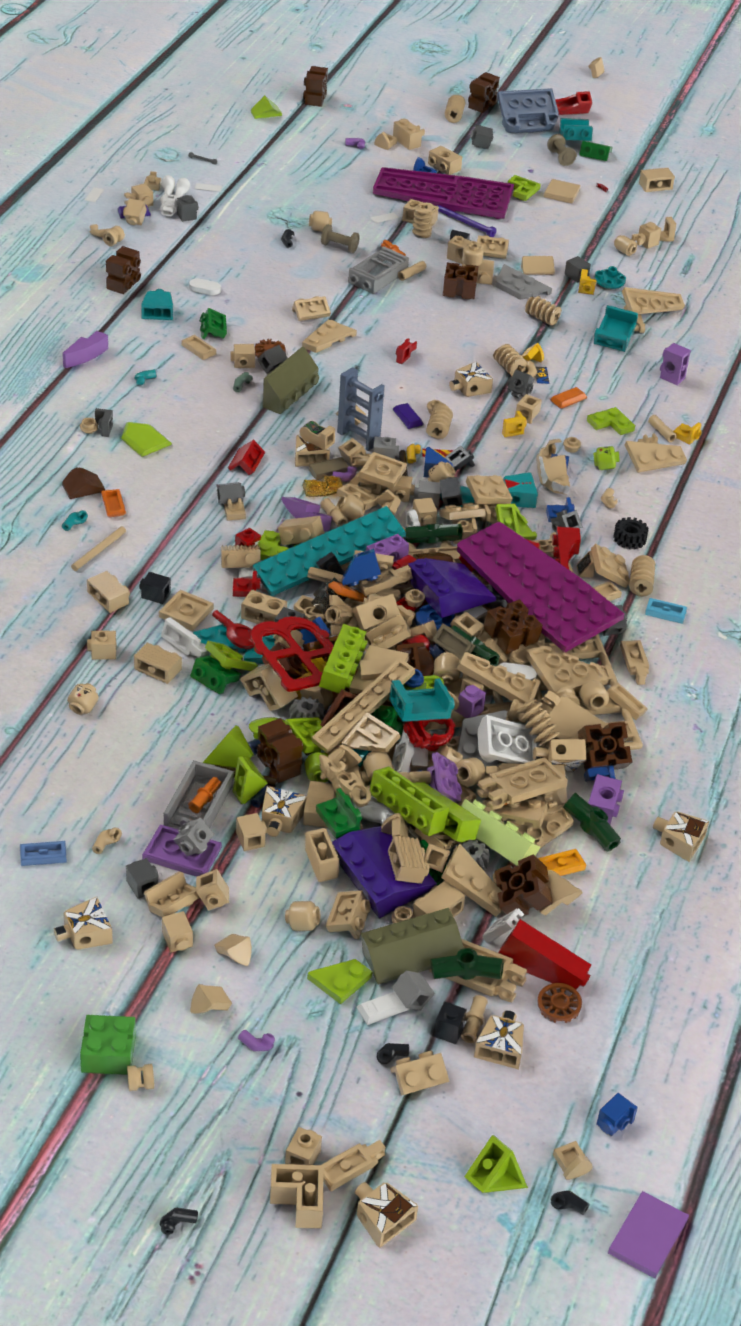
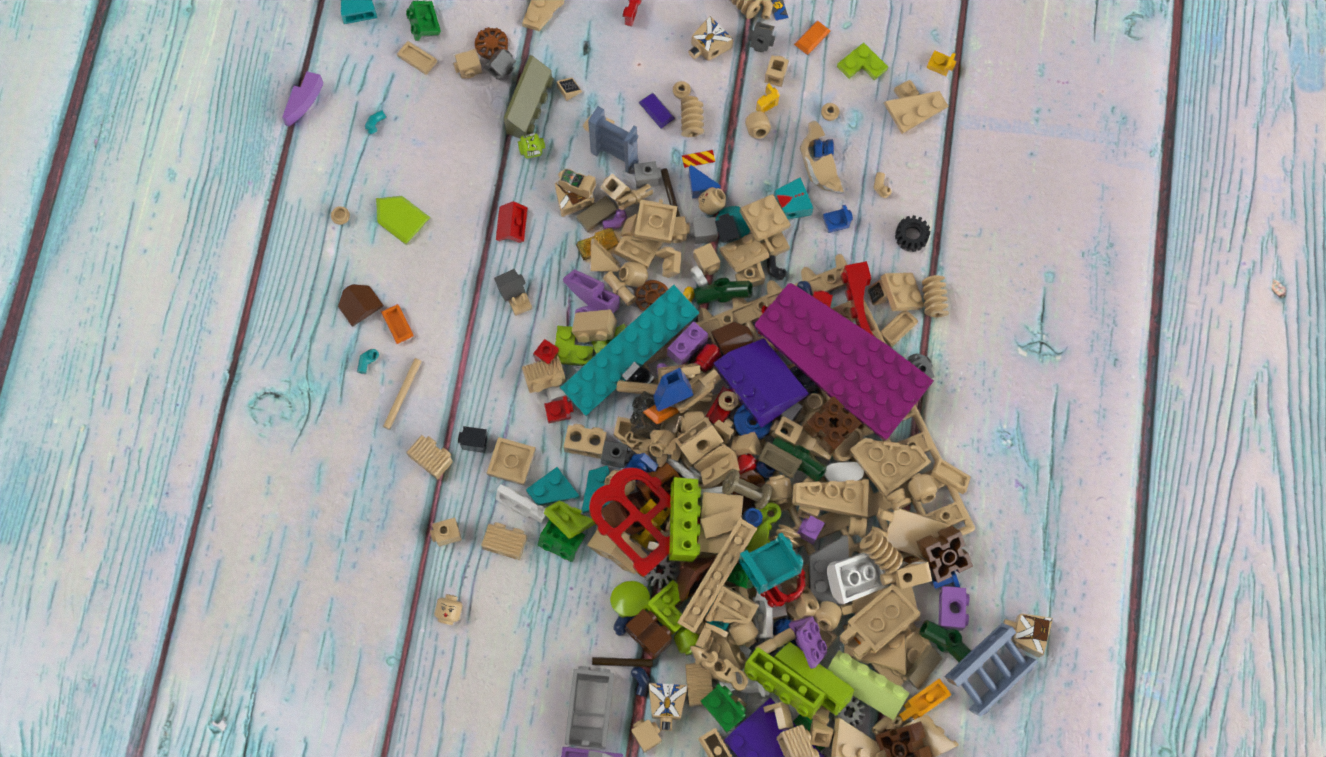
camera: 10 degrees left, 30 degrees up
(105, 420) = (356, 206): dark grey bracket -> none
(204, 795) = (594, 703): orange axle -> none
(229, 749) = (601, 636): lime slope -> none
(236, 633) = (569, 483): red piece -> none
(244, 377) = (473, 101): sand green arm -> none
(247, 780) = (629, 675): lime slope -> none
(283, 412) = (531, 145): none -> lime head
(322, 490) = (601, 259): none -> tan slope
(329, 387) = (568, 88): none -> slope
(411, 452) = (672, 168): yellow arm -> none
(414, 652) = (759, 495): none -> dark tan hose
(460, 457) = (723, 168): black bracket -> none
(505, 437) = (757, 124): none -> tan head
(511, 517) = (796, 254): lime wing -> none
(561, 837) = (923, 667): none -> dark tan tile
(566, 519) = (848, 241): dark grey brick -> none
(606, 458) = (868, 128): lime head -> none
(634, 826) = (974, 662): none -> sand blue fence
(635, 660) = (948, 413): tan hinge -> none
(663, 429) = (917, 64): tan piece -> none
(666, 610) = (948, 333): medium azure tile -> none

